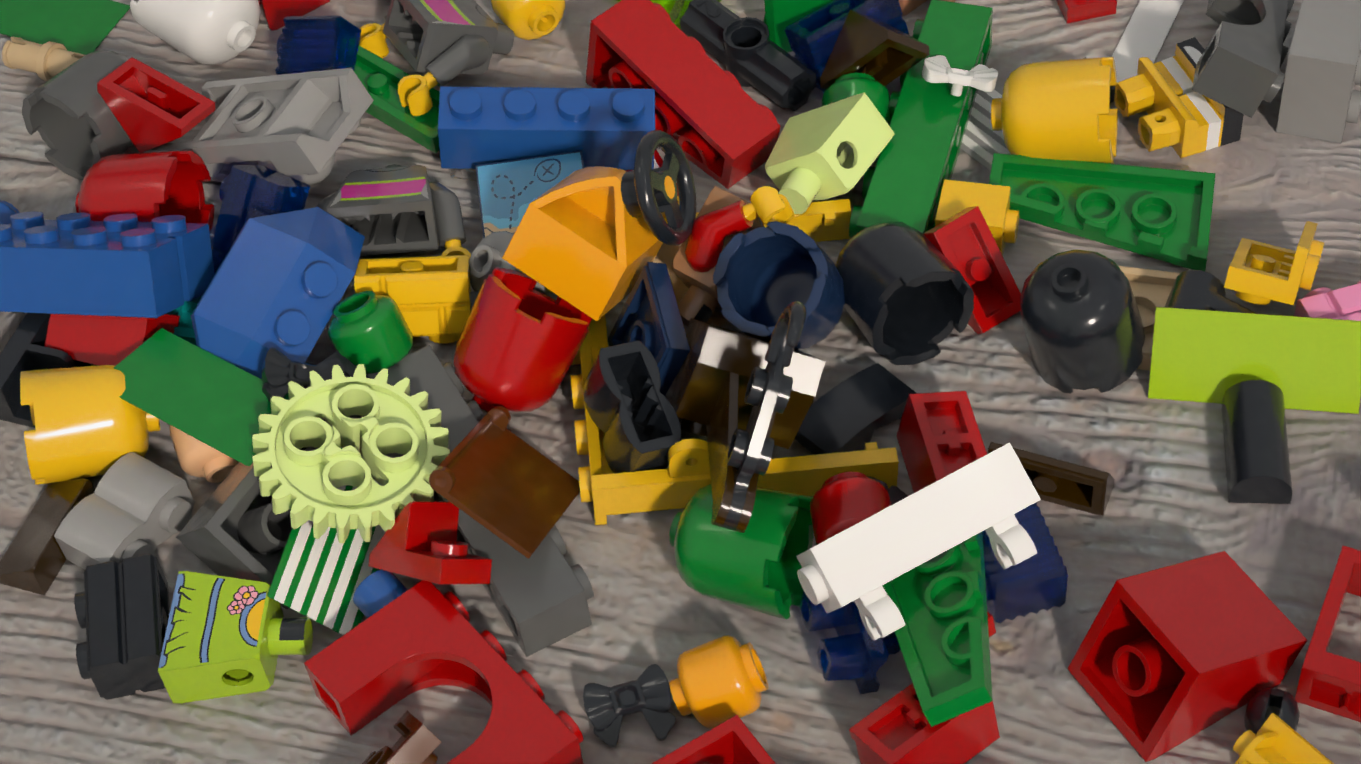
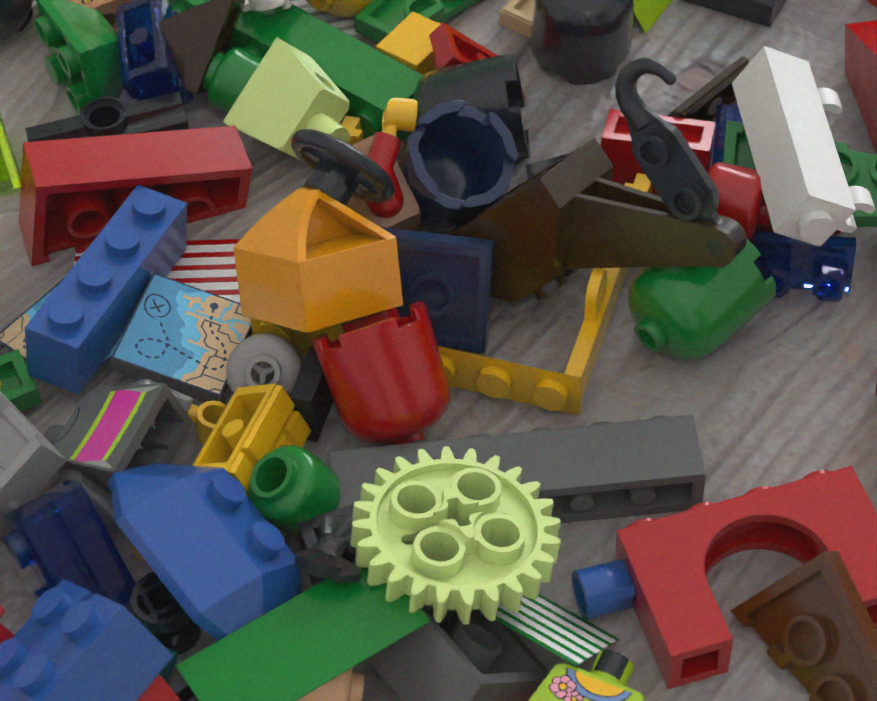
camera: 70 degrees left, 0 degrees up
(426, 547) = (590, 529): red slope -> none
(505, 483) = (550, 428): reddish brown piece -> none
(629, 409) = (519, 316): black brick -> none
(647, 694) = (800, 422): black piece -> none
(719, 681) = (815, 364): light orange head -> none

